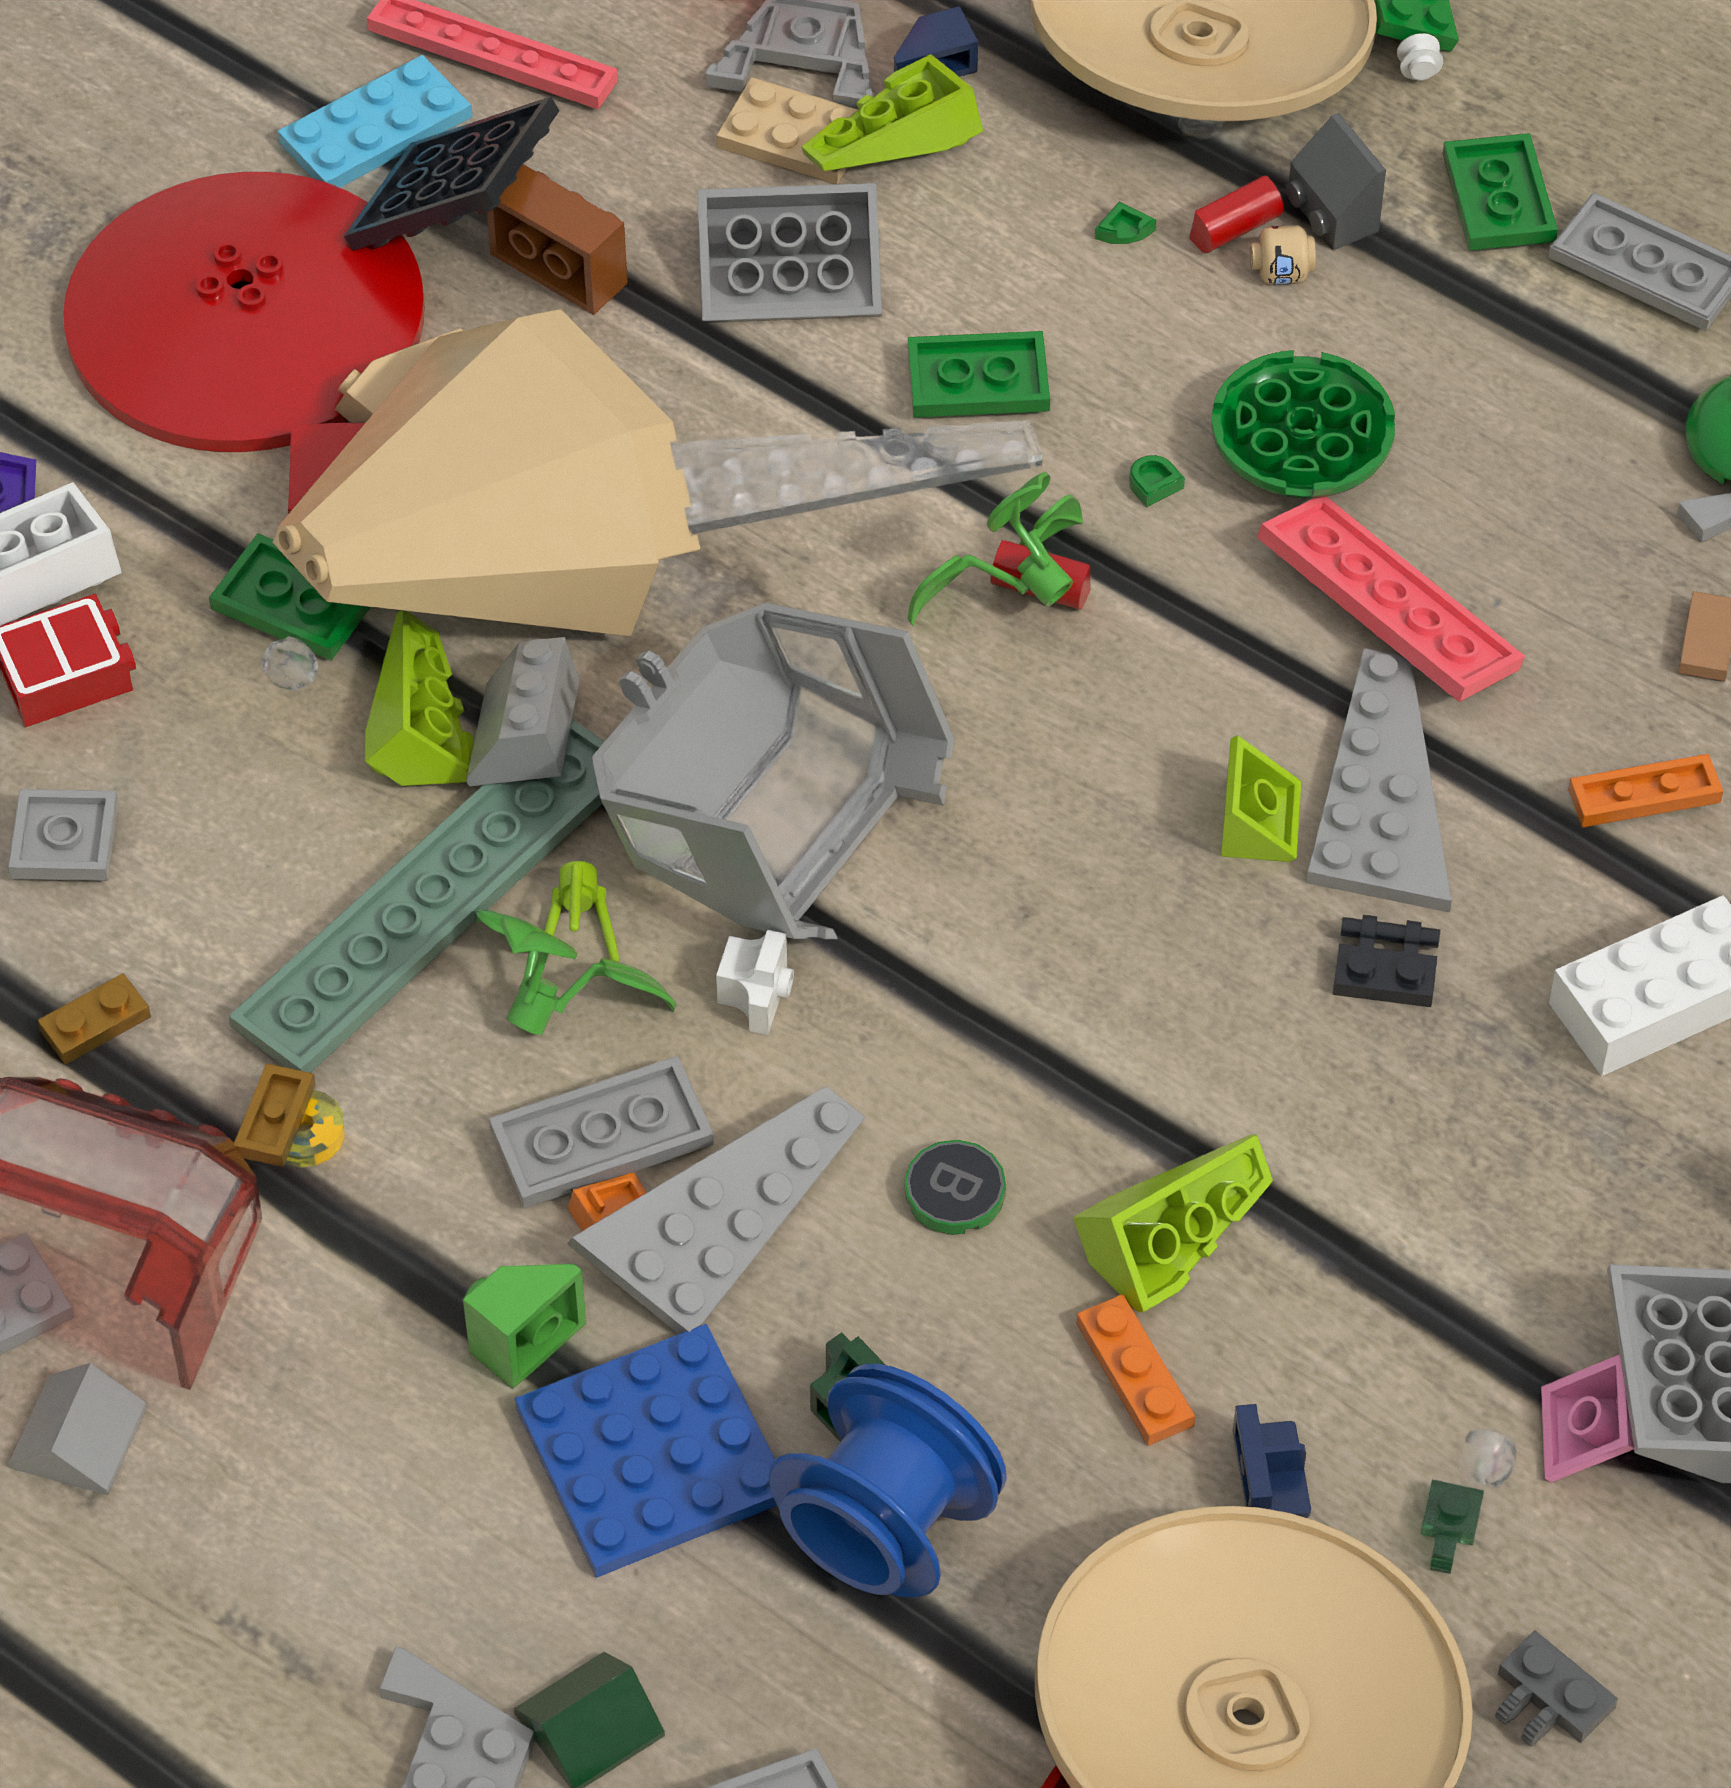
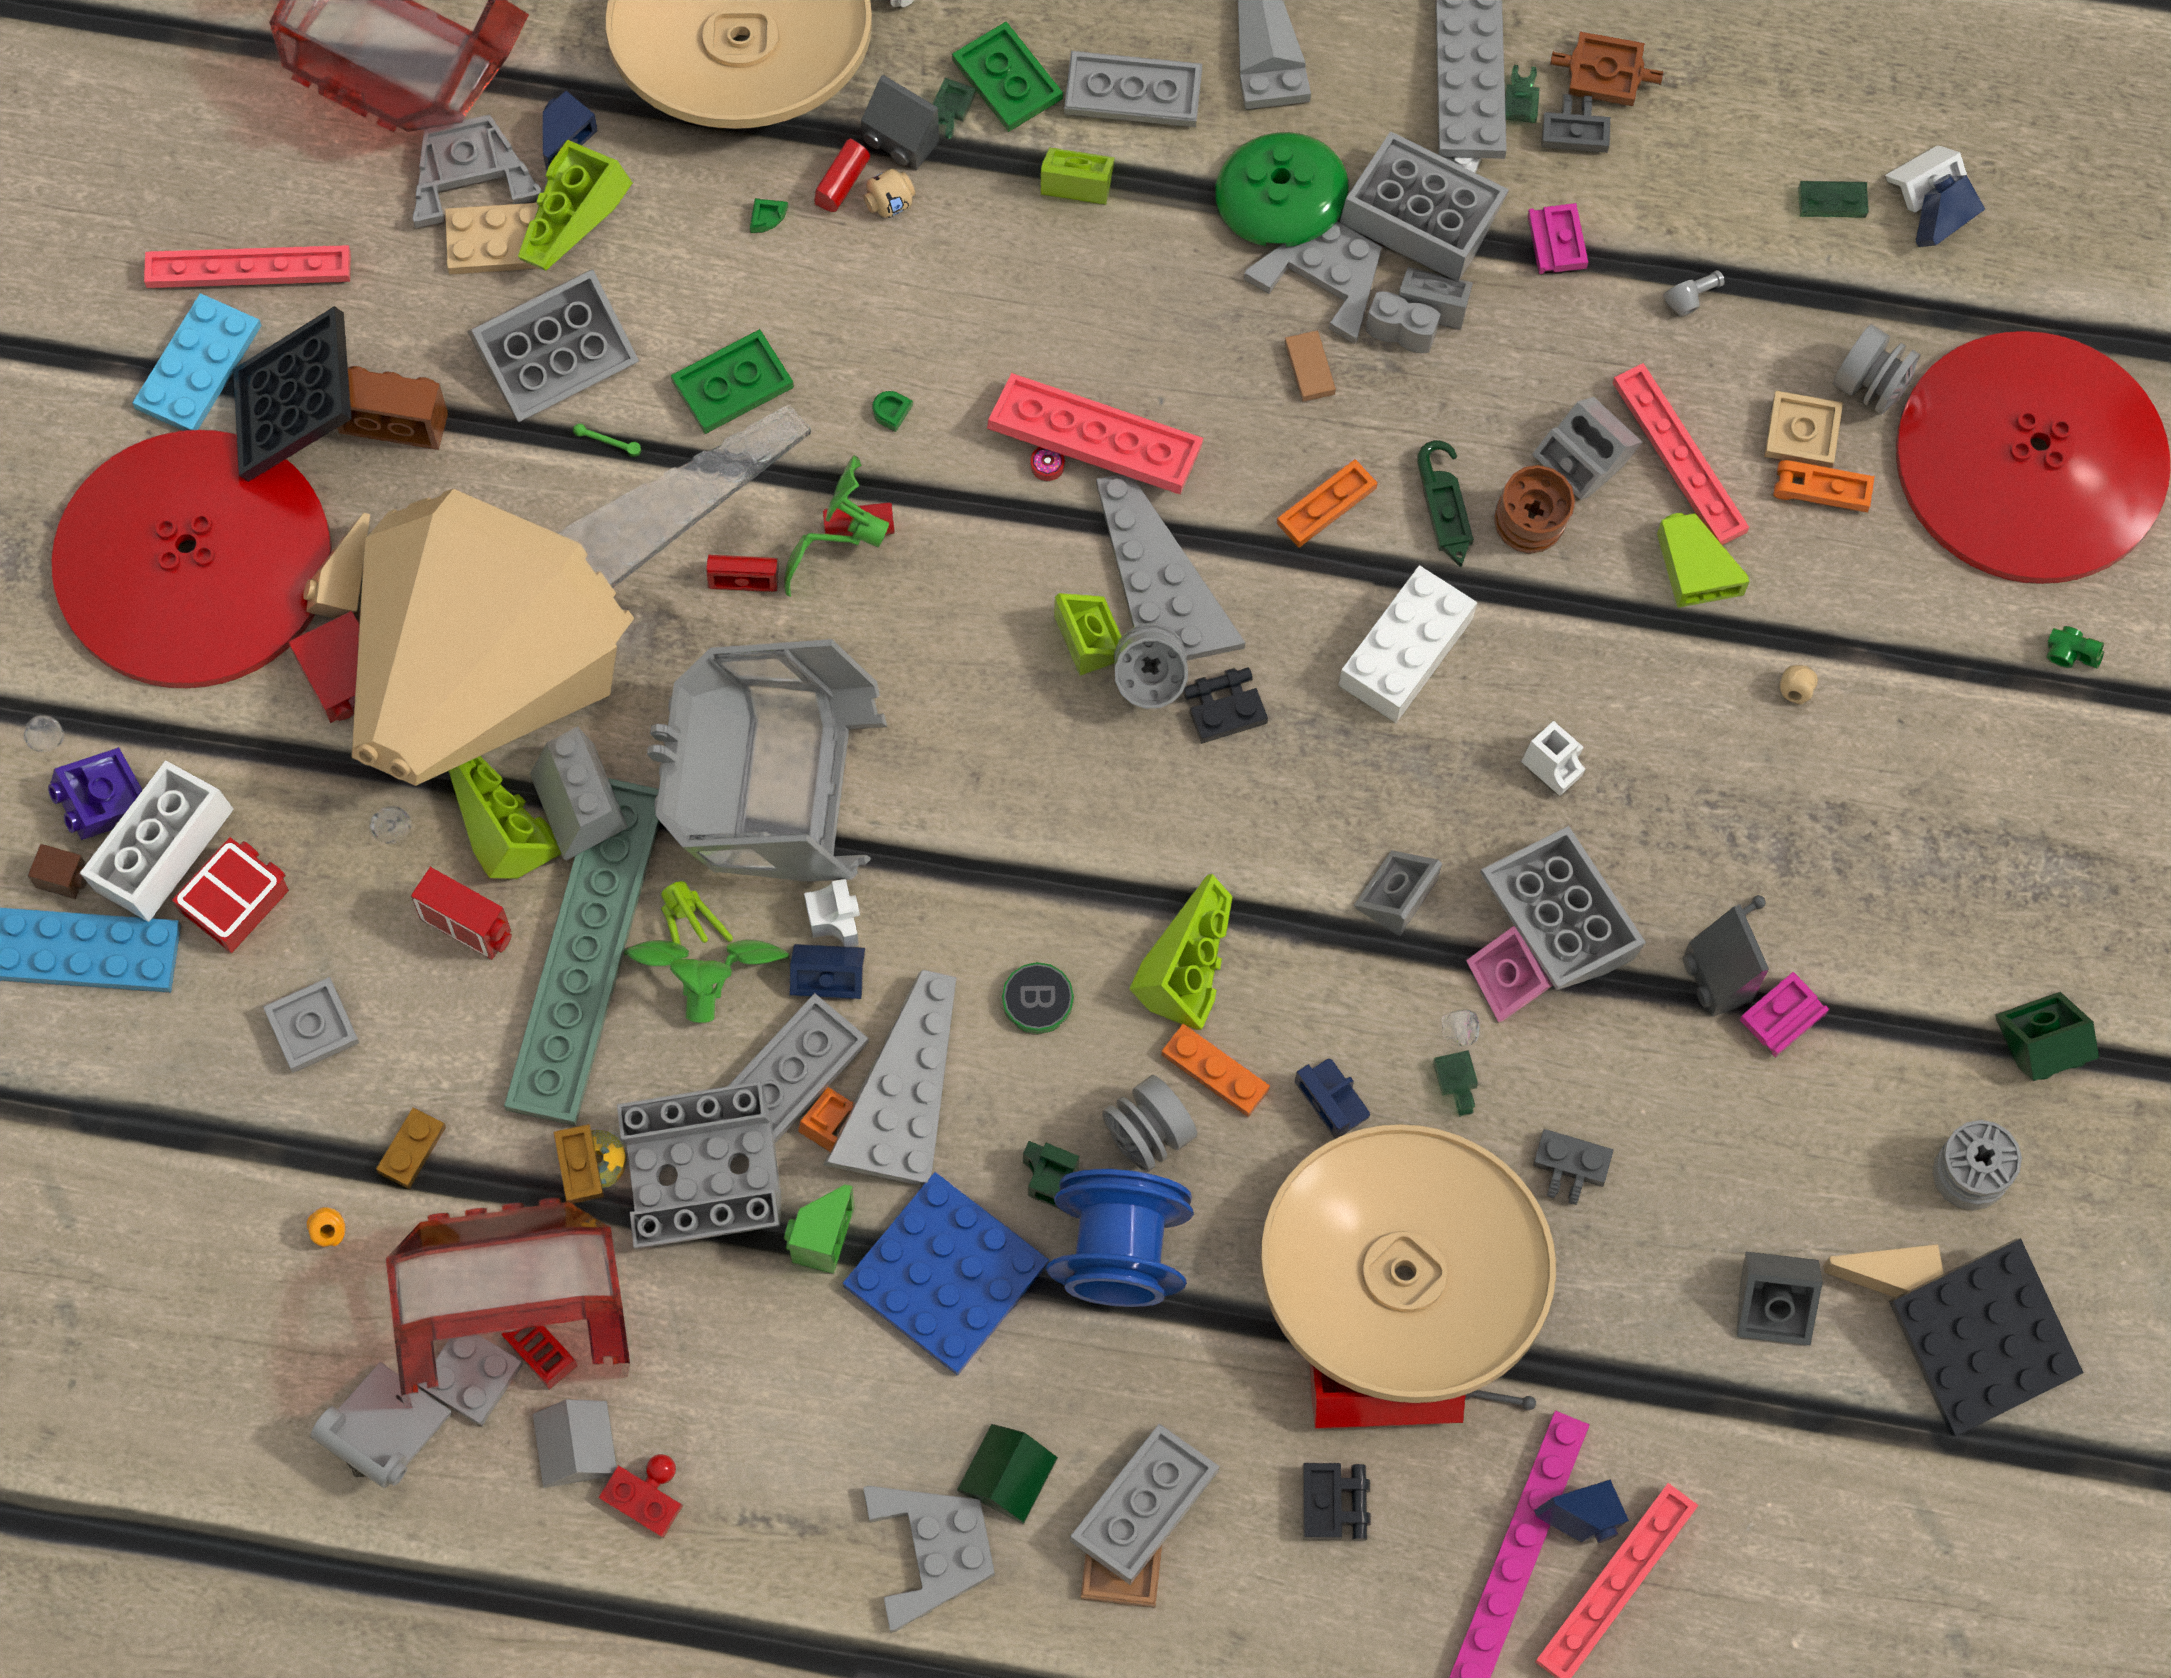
camera: 30 degrees left, 15 degrees up
(107, 1338) = (554, 1373): none -> red slope
(118, 1533) = (642, 1498): none -> red plate
(277, 599) = (344, 781): green plate -> none
(307, 783) = (461, 913): none -> red brick
(437, 1149) = (700, 1139): none -> light grey slope
(708, 1042) = (827, 971): none -> dark blue panel
(819, 400) = (632, 448): none -> bright green hinge
(868, 574) = (742, 573): none -> red brick
(1009, 1380) = (1155, 1119): none -> light grey wheel
(1288, 845) = (1148, 684): none -> light grey wheel
(1303, 424) = (968, 299): green brick -> none
(1313, 610) = (1047, 464): none -> tile
(1416, 193) = (953, 103): none -> clear green plate
(1497, 1266) = (1398, 889): none -> light grey slope
(1523, 324) = (1076, 175): none -> lime slope

